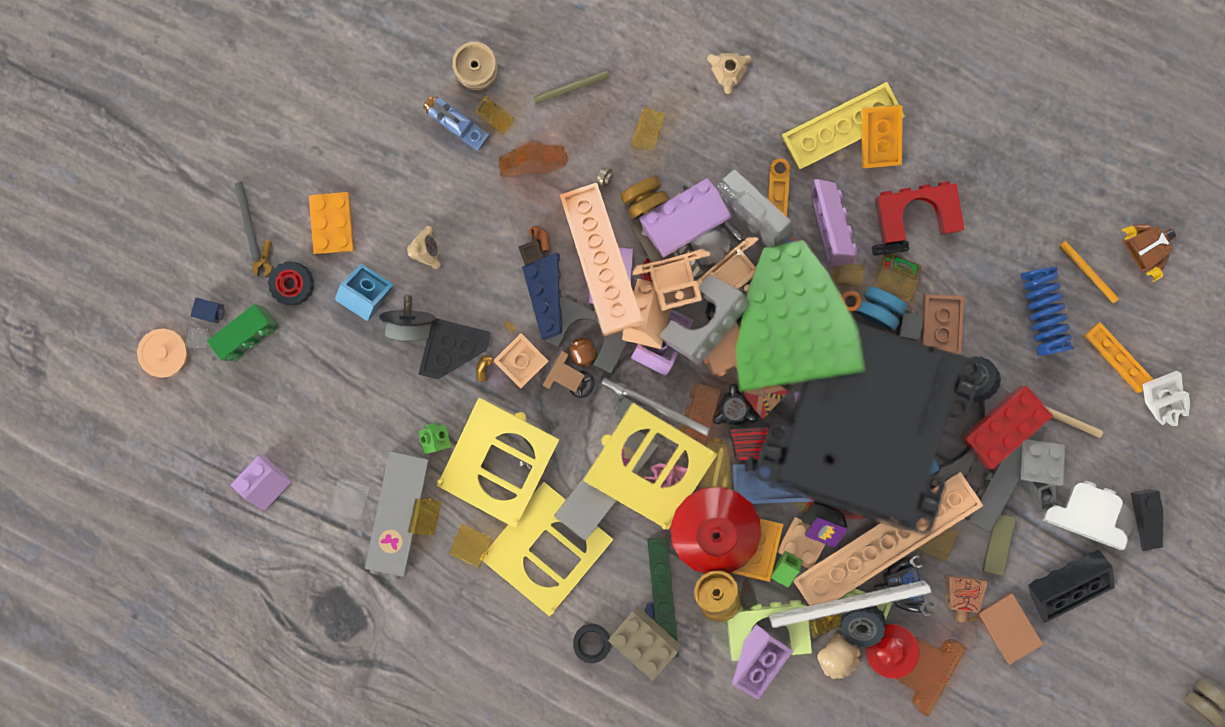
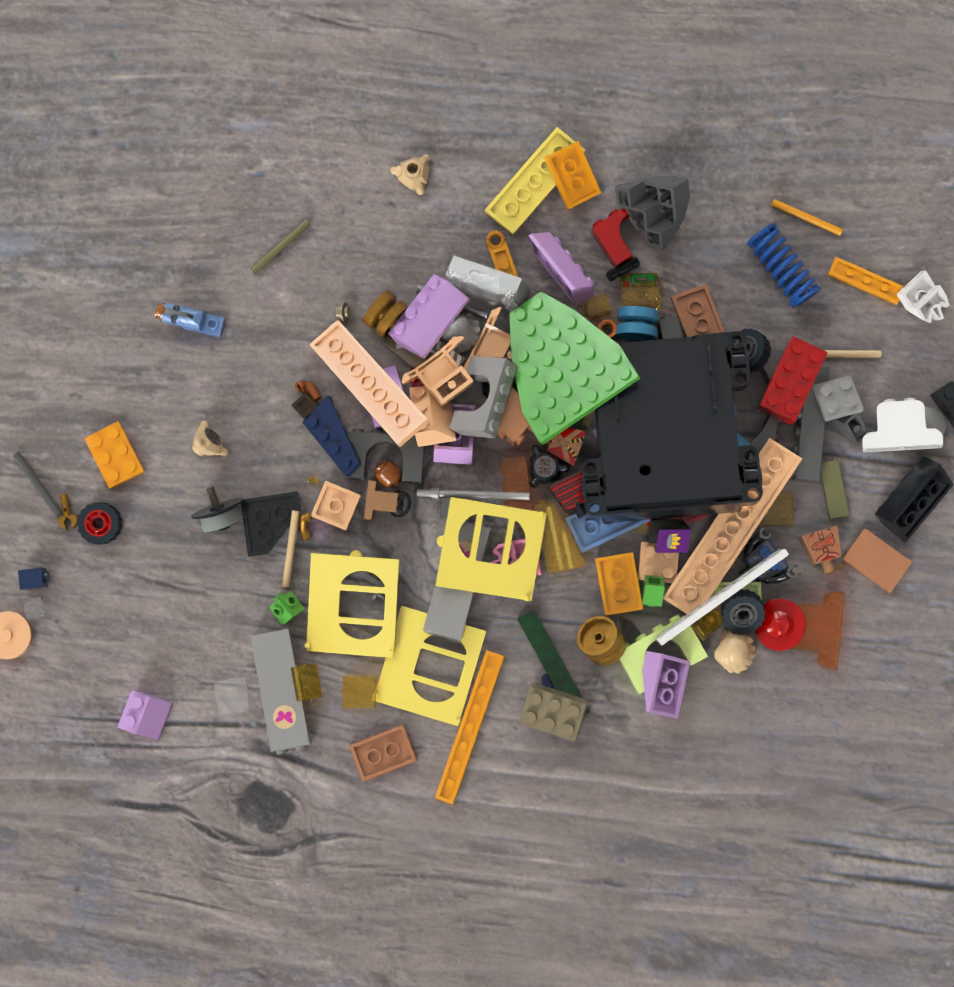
camera: 20 degrees left, 5 degrees down
(242, 333) = (74, 585): green brick -> none
(363, 292) = (168, 503): dark azure slope -> none
(461, 384) = (290, 548): none -> tan bar
(469, 611) = (383, 752): none -> nougat tile
(475, 54) = (187, 251): tan wheel -> none
(494, 115) = (221, 298): clear yellow slope -> none
(533, 159) = (272, 321): clear orange brick -> none
(560, 621) = (469, 727): none -> light orange tile
(606, 644) = (503, 748): black tyre -> none
(648, 129) = (363, 254): clear yellow panel -> none
(711, 512) = (560, 568): red dish -> none
(949, 202) = (655, 206): none -> dark grey brick
(1149, 247) = (848, 173): dark orange torso -> none

